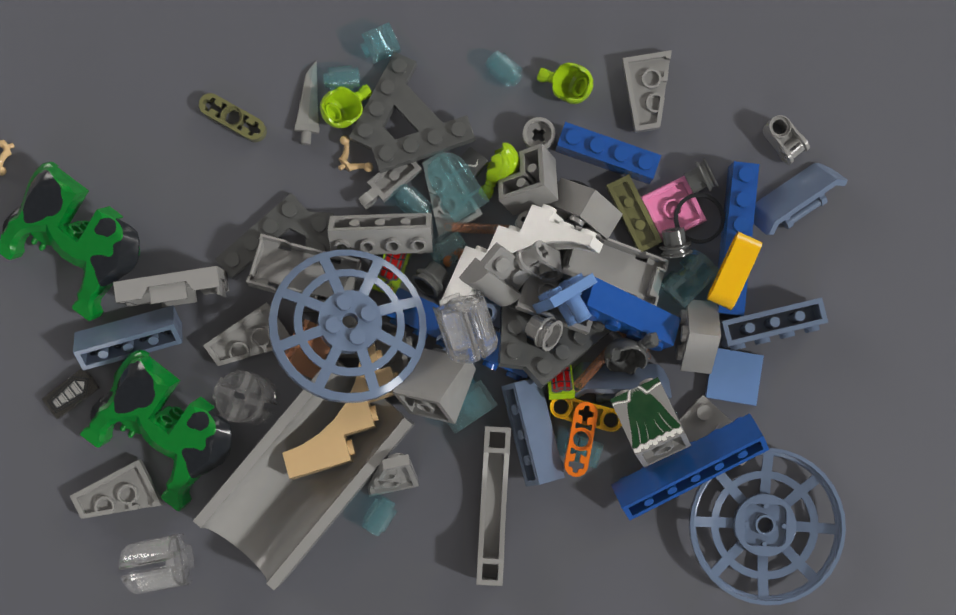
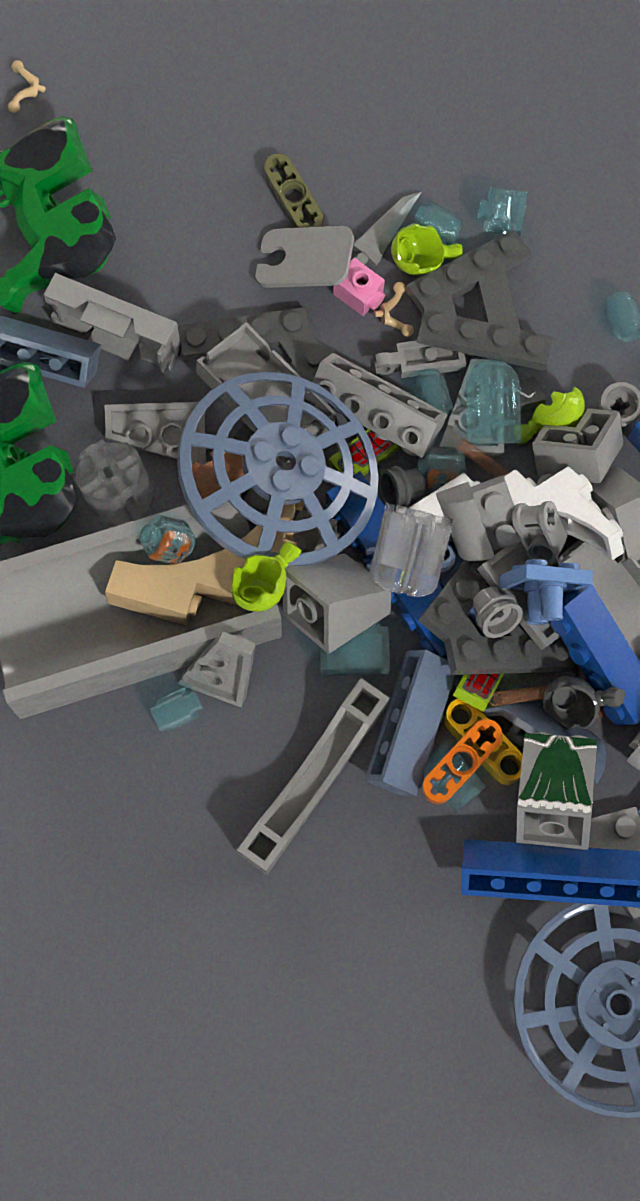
camera: 30 degrees right, 10 degrees down
(275, 155) = (312, 256): none -> light grey piece
(307, 419) = (167, 539): none -> clear light blue head
(318, 157) = (361, 288): none -> bright pink brick
(385, 410) = (262, 579): none -> lime hair

